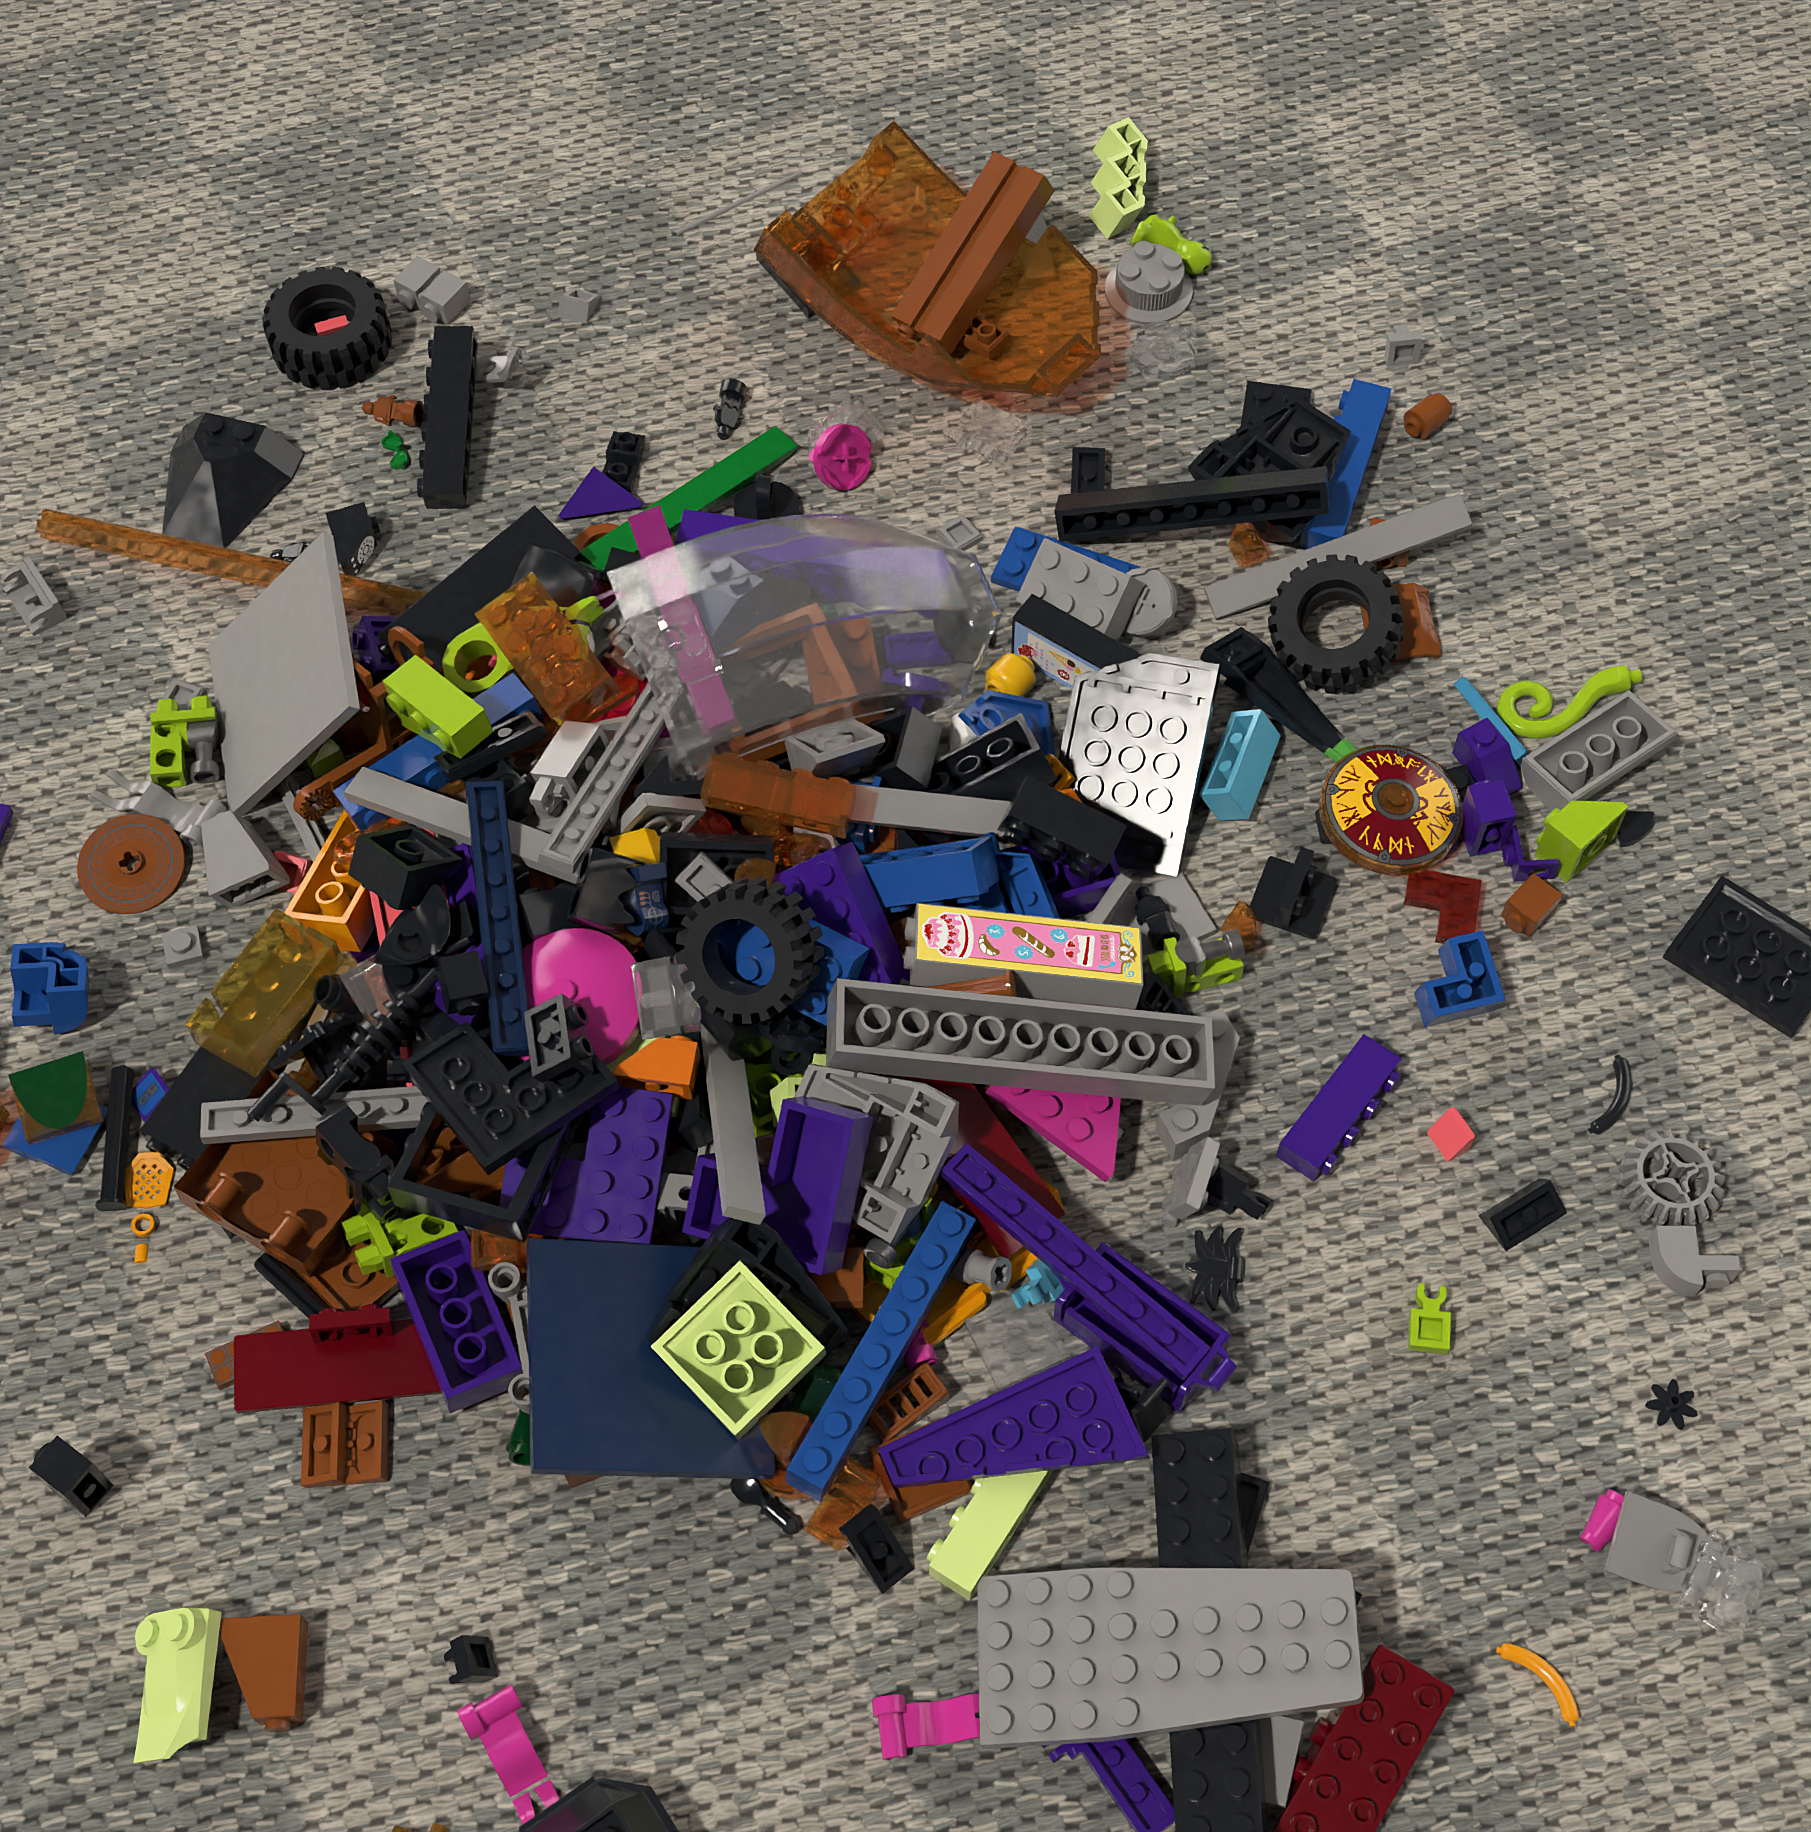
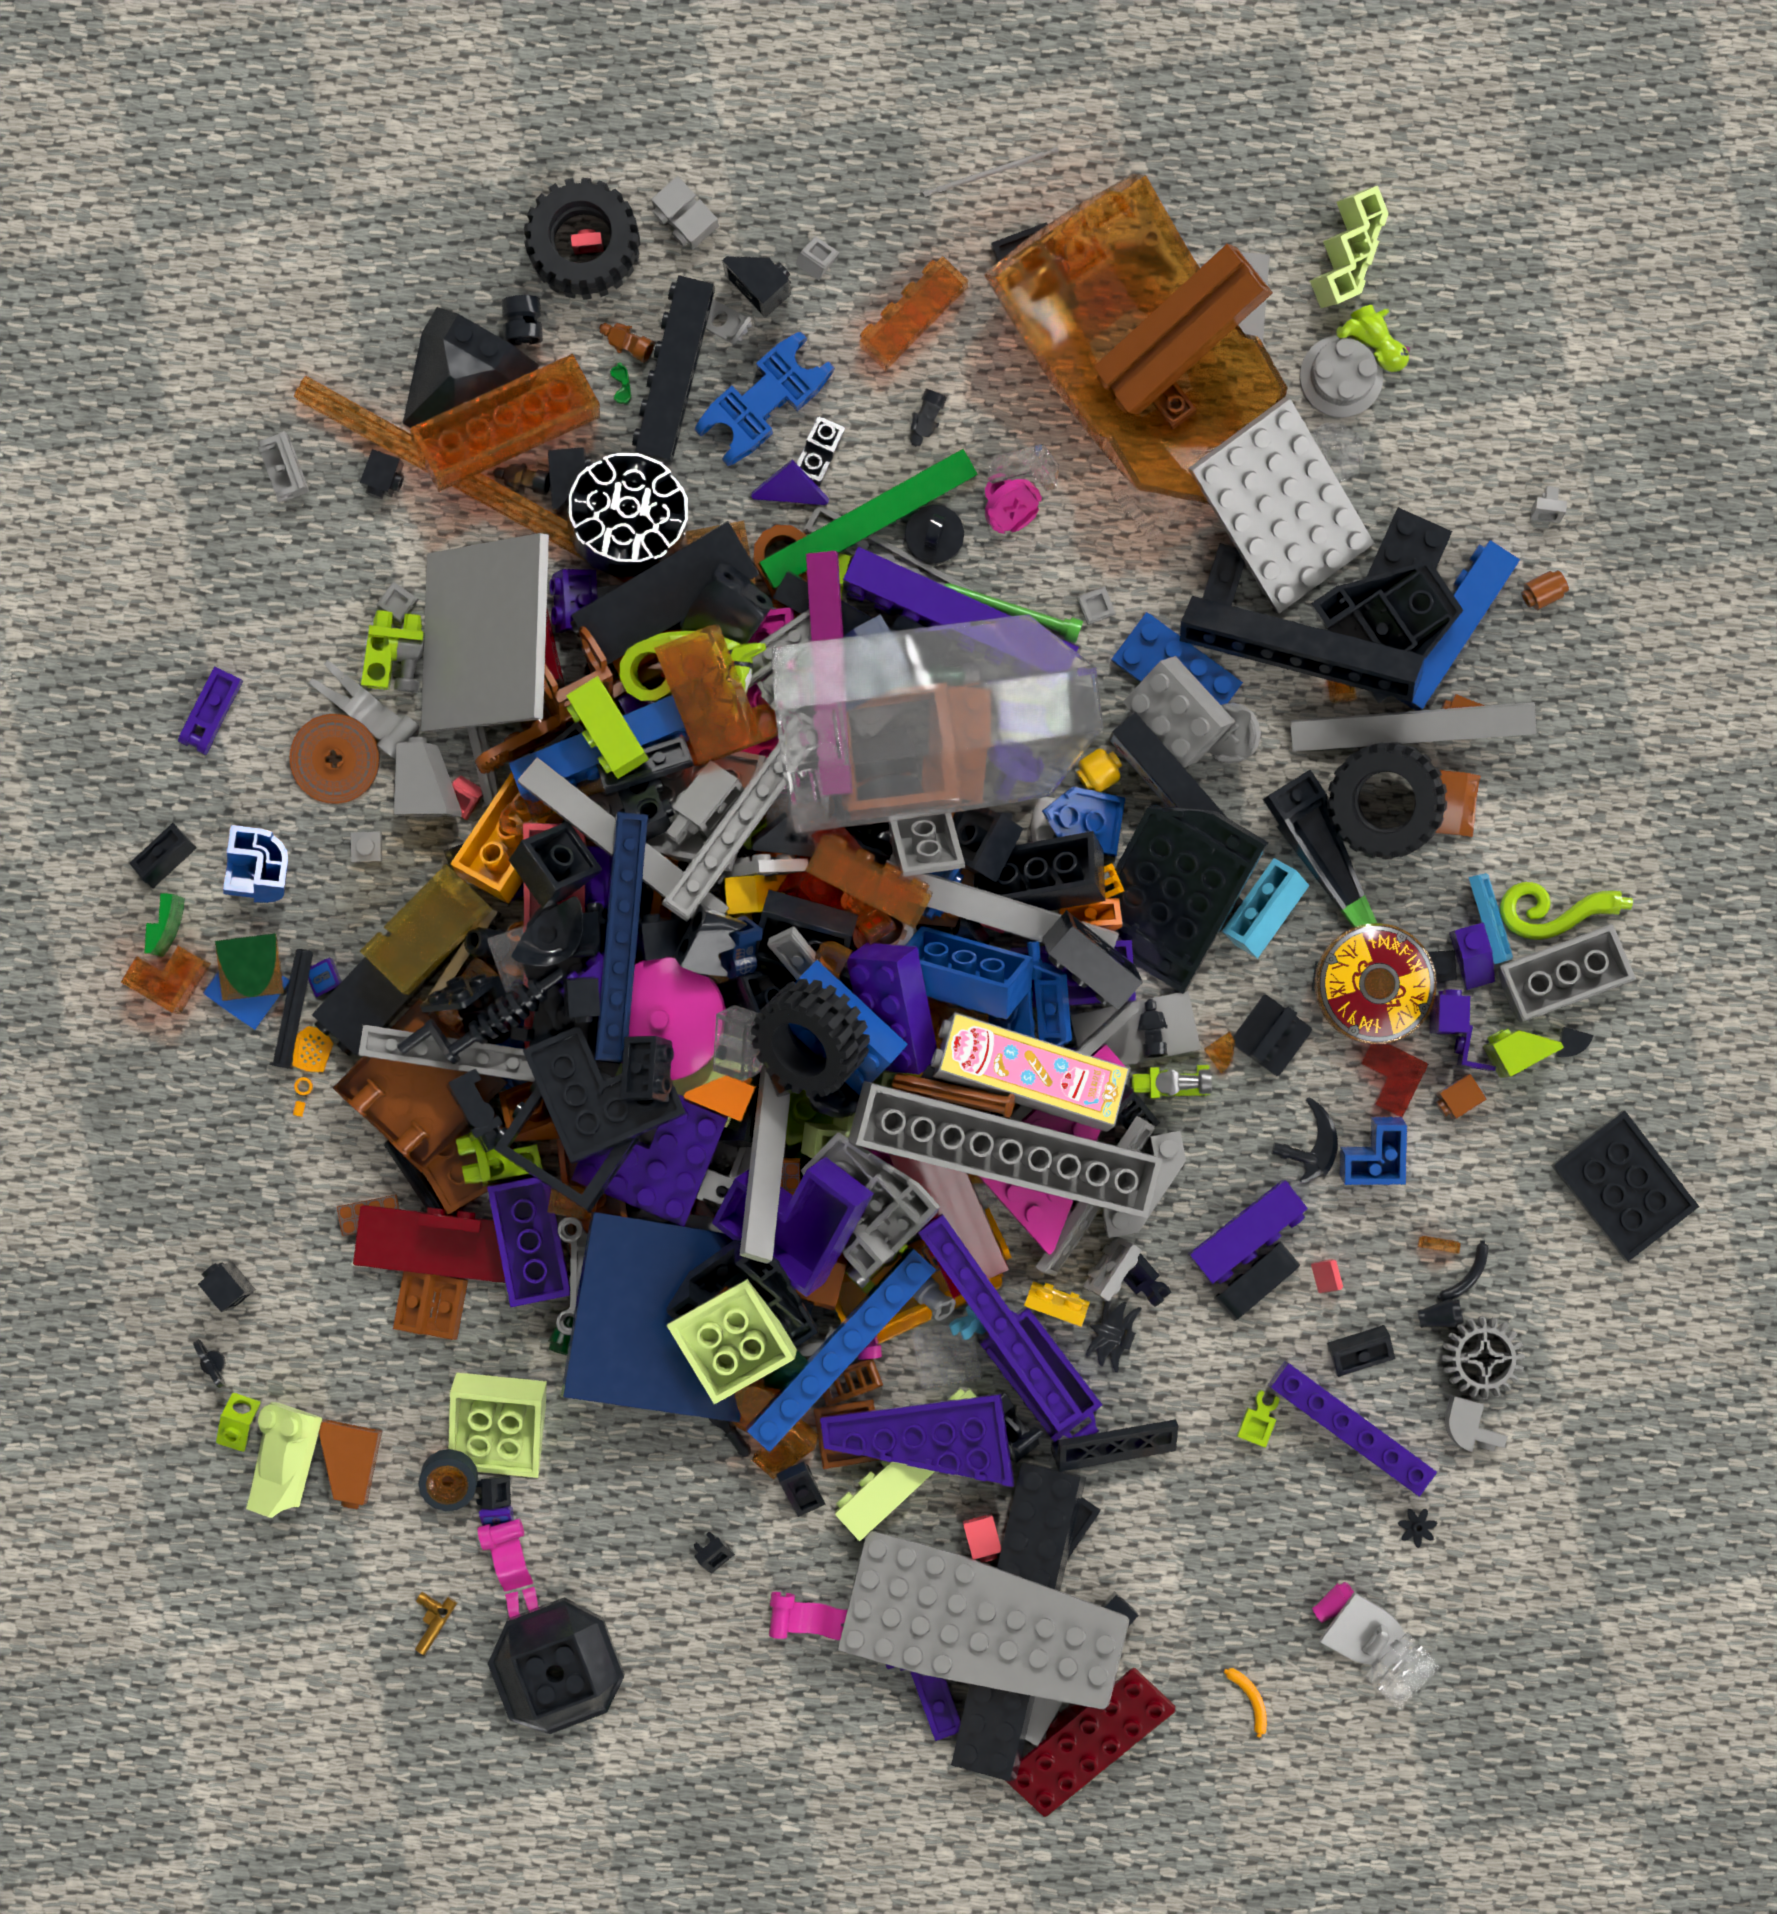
camera: 15 degrees right, 25 degrees up
(65, 1588) = (211, 1362): none -> black piece
(106, 1661) = (234, 1426): none -> lime bracket
(145, 579) = (382, 475): none -> black brick
(272, 494) = (505, 422): none -> clear orange brick
(277, 408) = (521, 318): none -> black wheel
(383, 1657) = (448, 1495): none -> wheel
(417, 542) = (632, 487): none -> black brick
(458, 1573) = (498, 1422): none -> yellowish green slope
(478, 1687) = (496, 1516): none -> dark purple slope
(520, 320) = (759, 280): none -> black slope
(560, 414) = (781, 383): none -> blue piece
(691, 323) = (913, 313): none -> clear orange brick
(782, 1666) = (713, 1554): none -> black tile
(1126, 385) = (1281, 505): none -> plate
(1128, 1546) = (982, 1538): none -> coral brick
(1132, 1146) = (1085, 1213): none -> light grey tile
(1153, 1238) = (1057, 1303): none -> yellow plate
(1264, 1388) = (1115, 1445): none -> black fence
(1368, 1161) = (1257, 1282): none -> black beam
(1396, 1006) = (1324, 1151): none -> black piece
(1548, 1299) = (1352, 1428): none -> dark purple brick
(1569, 1069) = (1439, 1244): none -> clear orange tile
(1603, 1145) = (1443, 1314): none -> black cone

